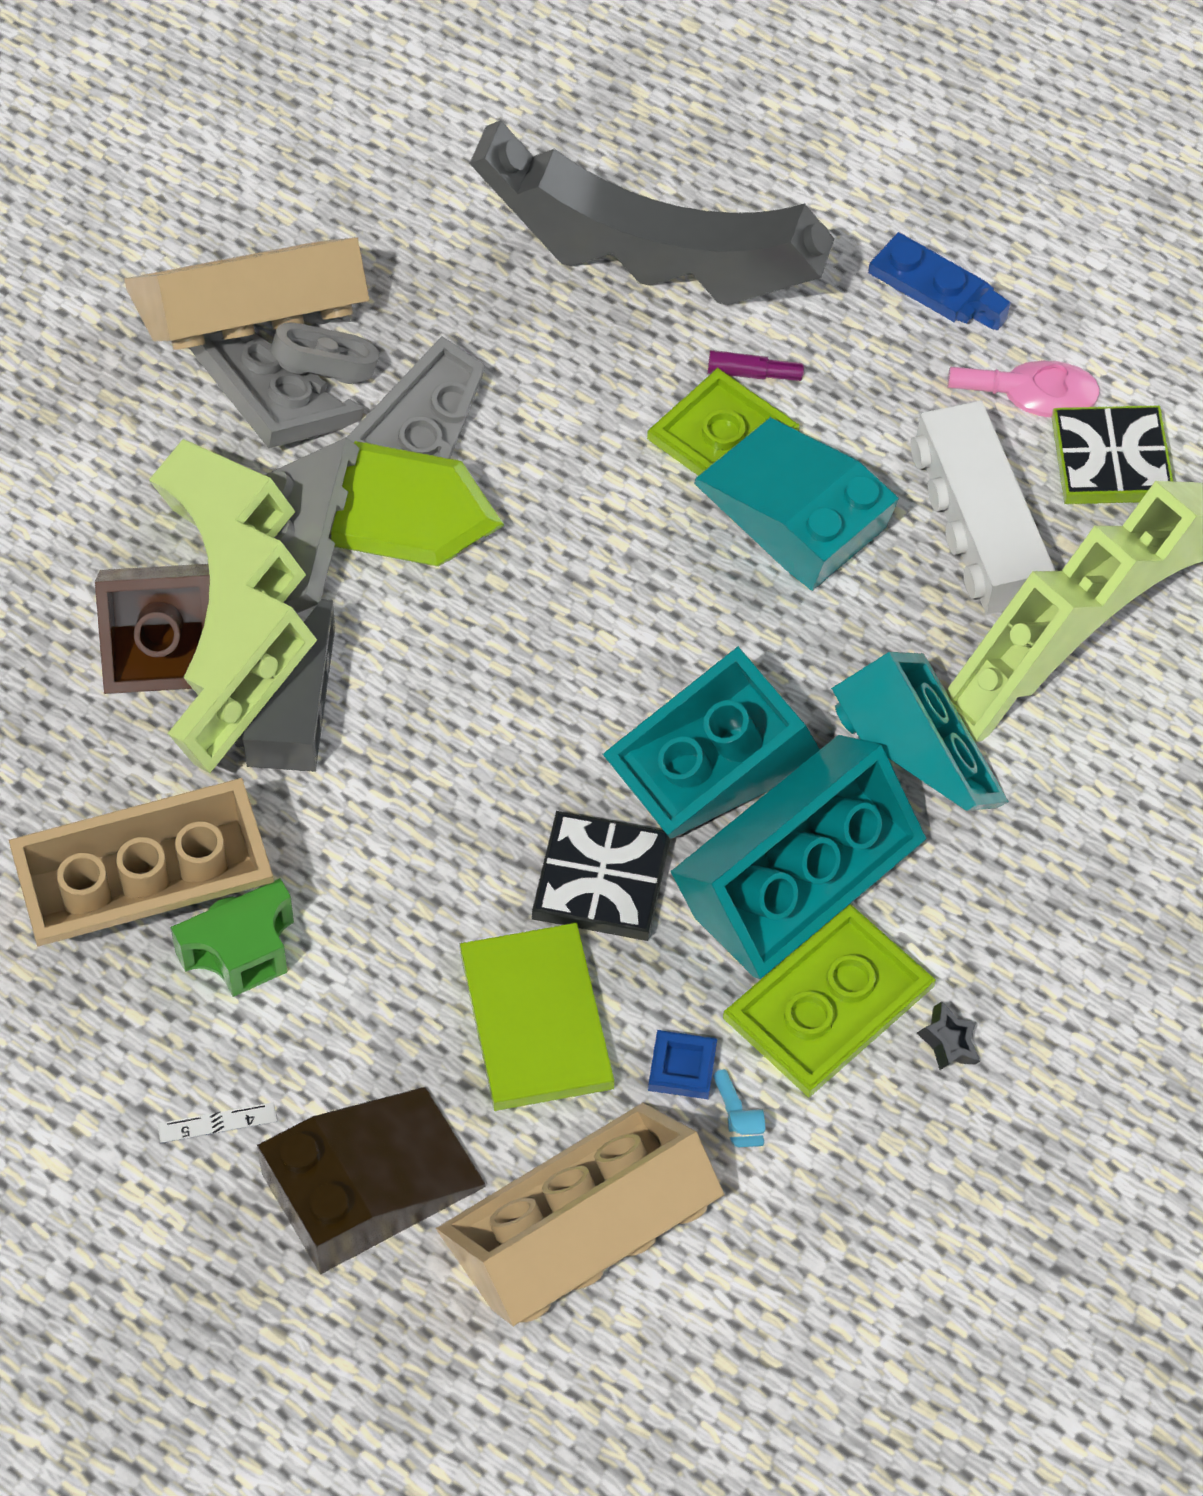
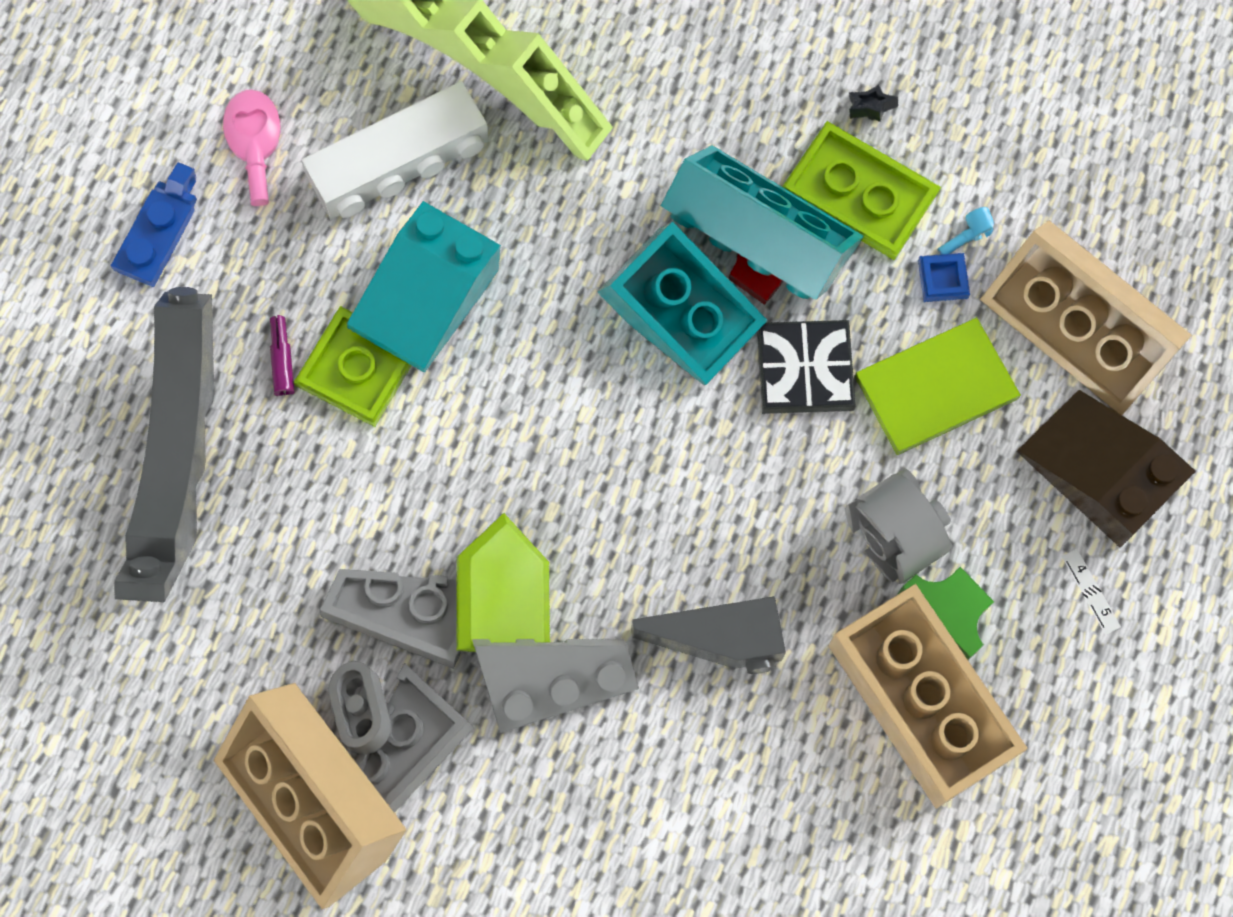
camera: 105 degrees left, 15 degrees up
(150, 625) = (677, 766): slope -> none
(248, 630) = (701, 667): yellowish green arch -> none
(353, 893) = (900, 526): none -> light grey brick
(912, 717) = (638, 154): teal slope -> none
(1110, 452) = (312, 71): tile -> none

